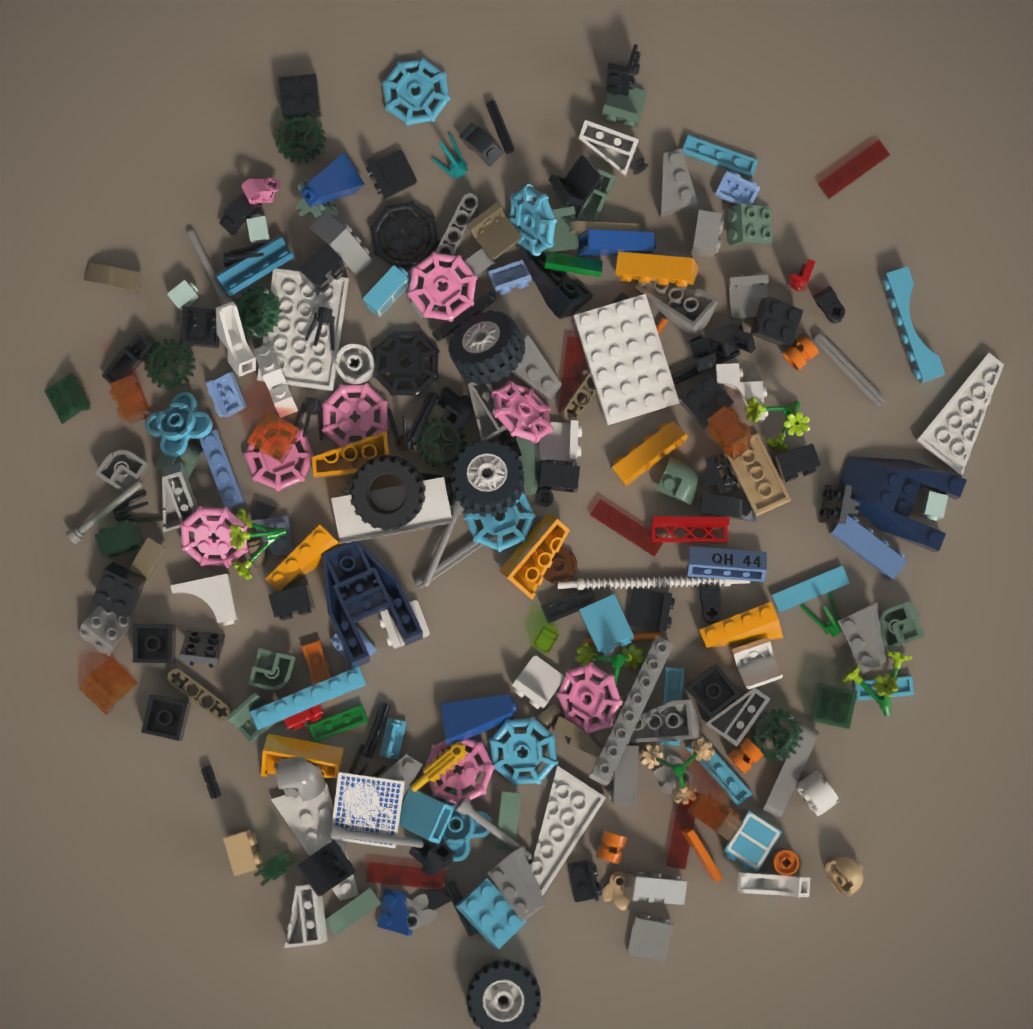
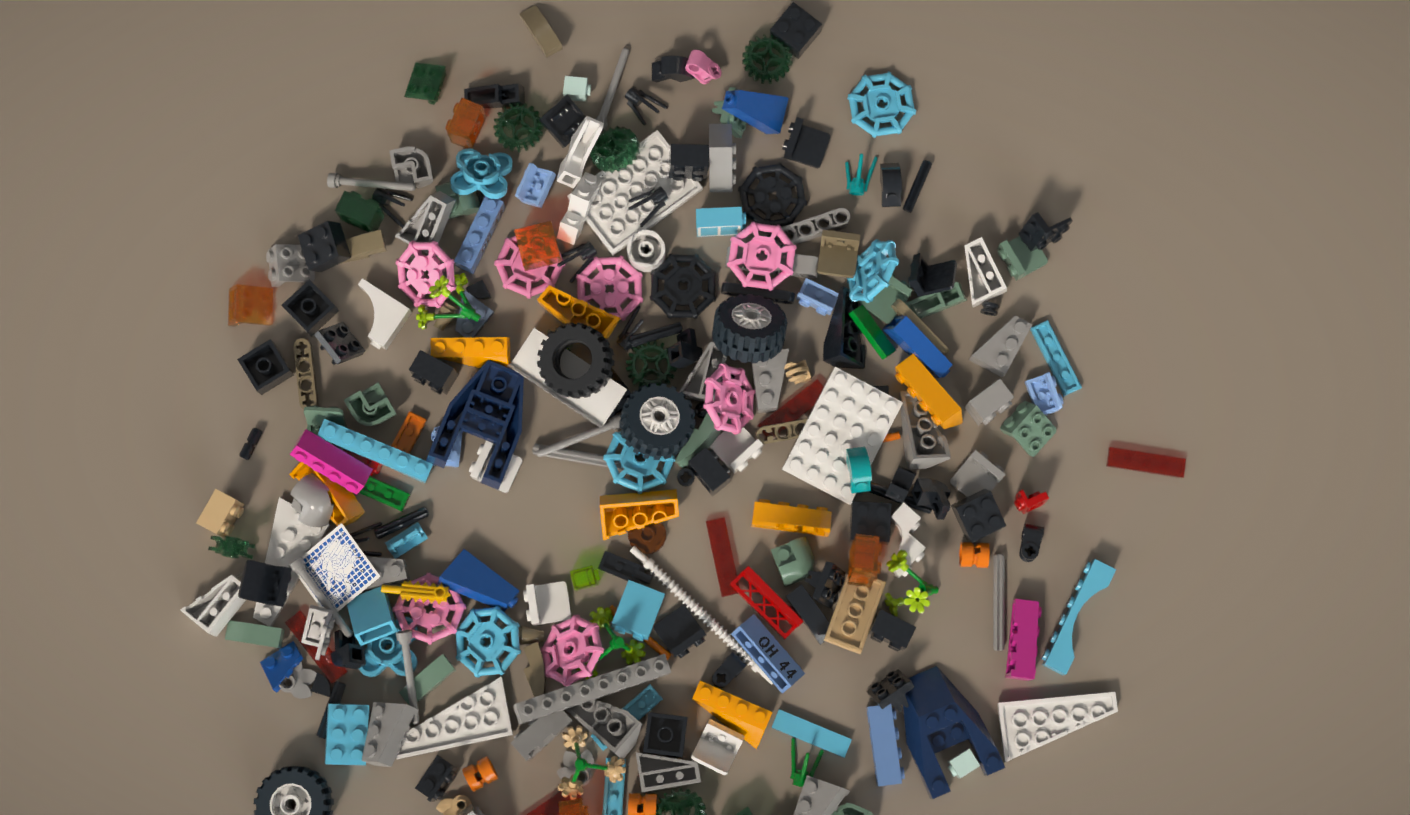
camera: 45 degrees right, 5 degrees down
(251, 269) = (640, 115): dark azure fence -> none
(258, 229) = (674, 93): light aqua brick -> none
(285, 737) = (331, 461): none -> dark pink brick
(397, 861) = (318, 629): none -> light grey bracket
(551, 344) = (798, 371): none -> tan arm
(663, 371) = (859, 469): none -> teal brick
(892, 379) = (1023, 640): none -> dark pink wedge

